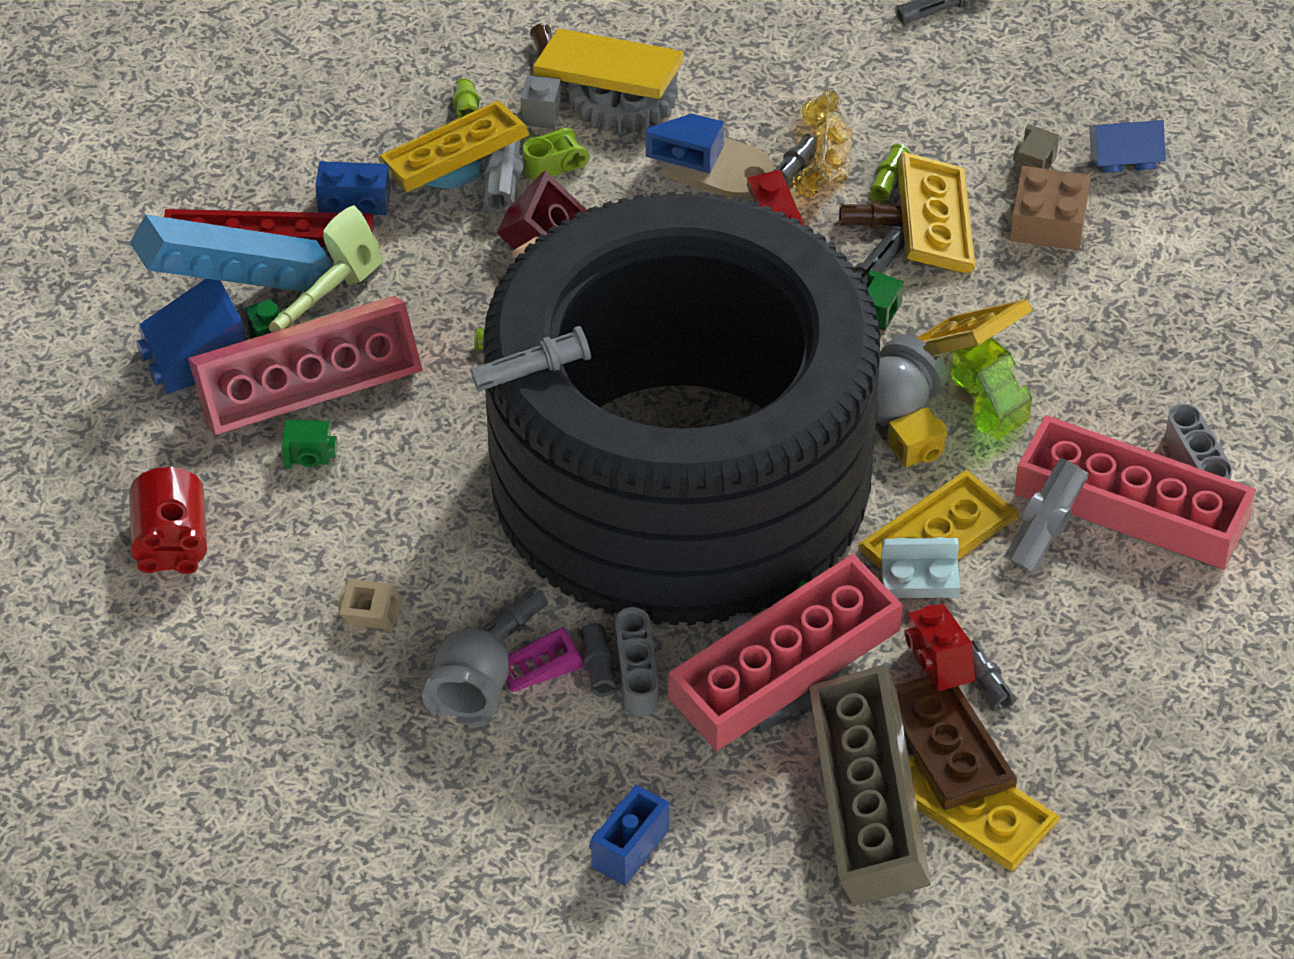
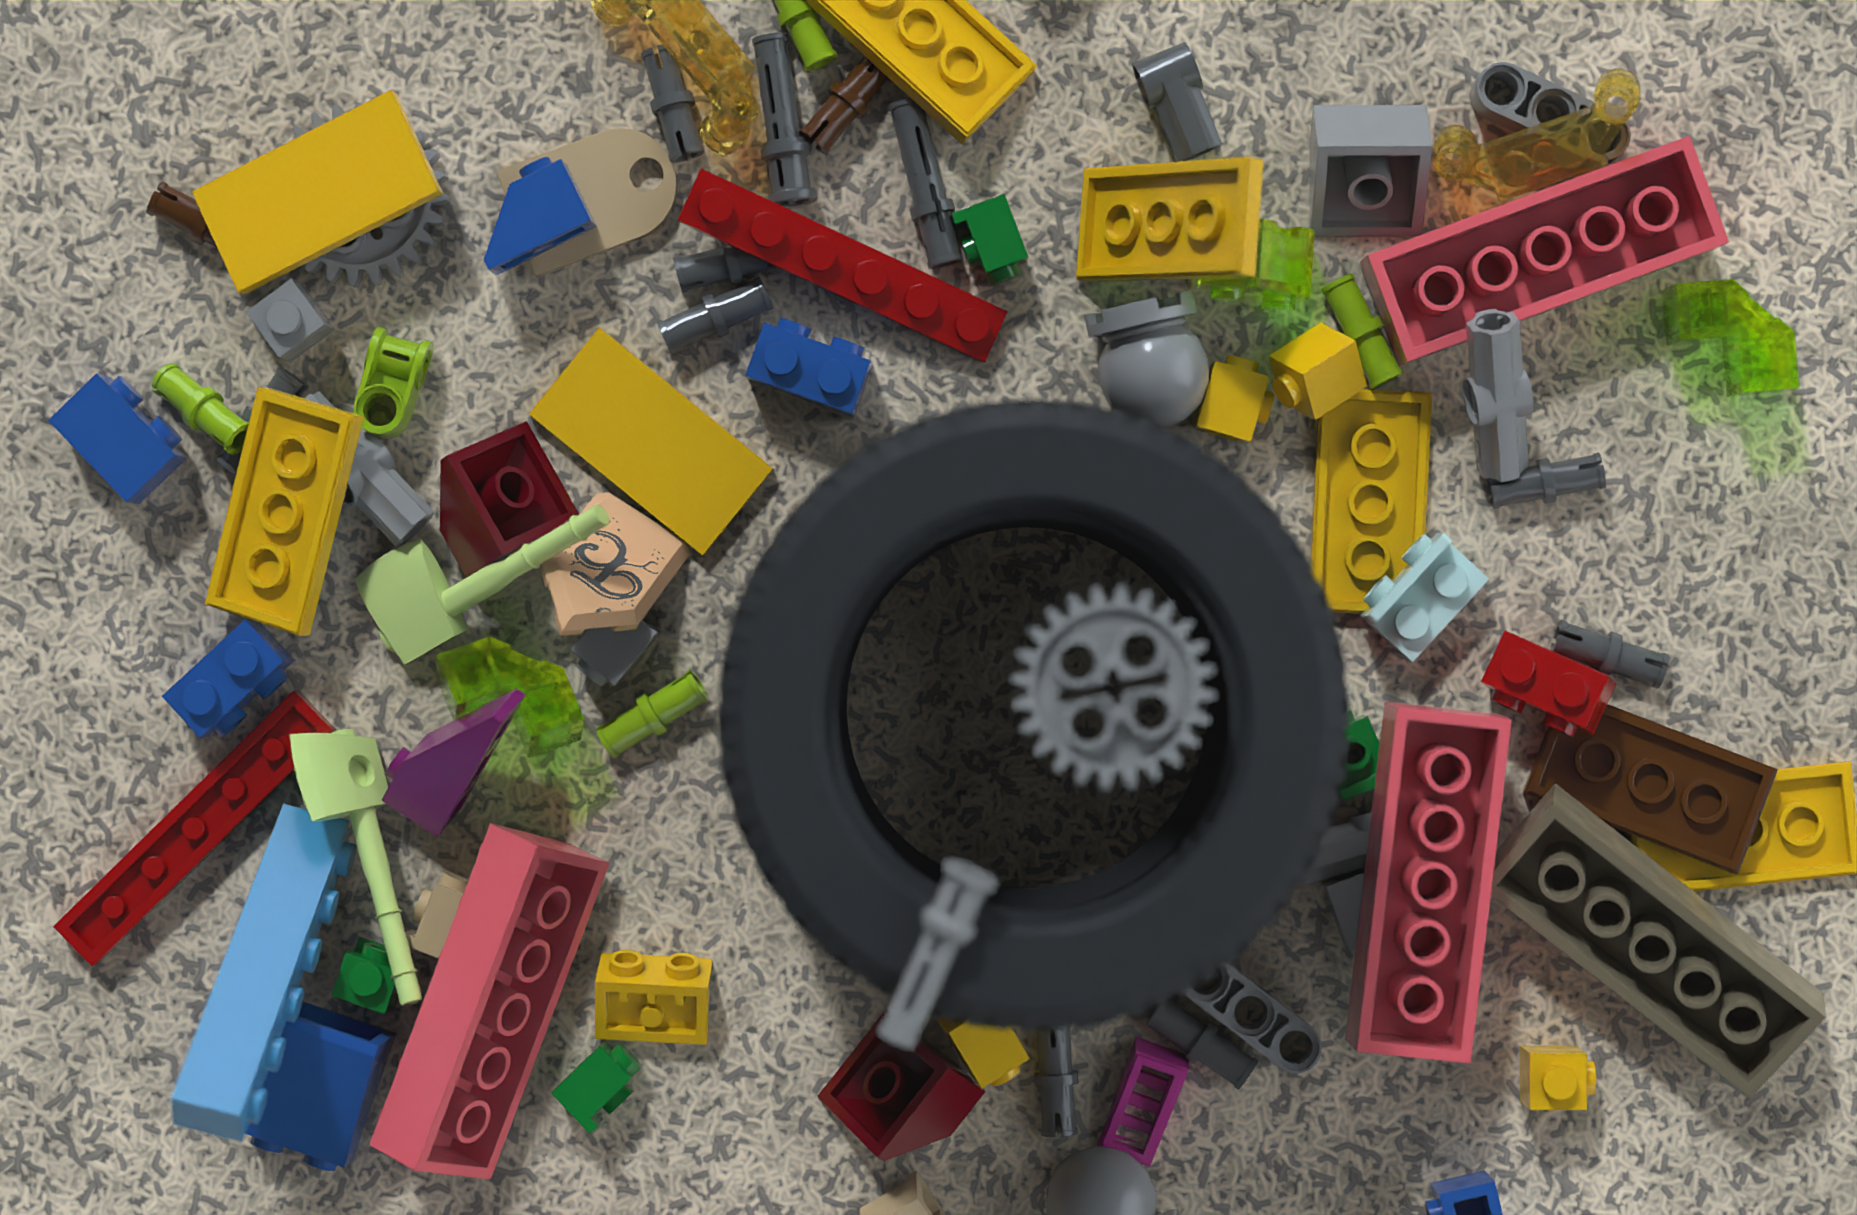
camera: 45 degrees left, 40 degrees up
(371, 438) = (652, 998): none -> yellow bracket
(410, 272) = (446, 764): none -> magenta slope
(419, 83) = (119, 437): none -> blue brick
(440, 559) = (899, 1094): none -> dark red slope
(460, 272) = (491, 669): none -> clear neon green brick
(467, 225) = (422, 611): none -> yellowish green piece
(499, 564) = (987, 1053): none -> yellow brick
(729, 329) = (1122, 744): none -> light grey gear
(750, 808) = (1555, 1077): none -> yellow brick
(825, 208) = (784, 147): none -> dark grey pin
(970, 449) = (1317, 371): none -> yellow brick
(1005, 478) = (1363, 327): none -> lime pin
(1021, 334) = (1176, 96): none -> dark grey piece
(1034, 584) = (1549, 481): none -> dark grey pin
(1087, 400) = (1369, 169): none -> light grey slope
(1191, 449) = (1544, 151): none -> clear yellow plate
(1198, 599) = (1756, 345): none -> clear neon green brick

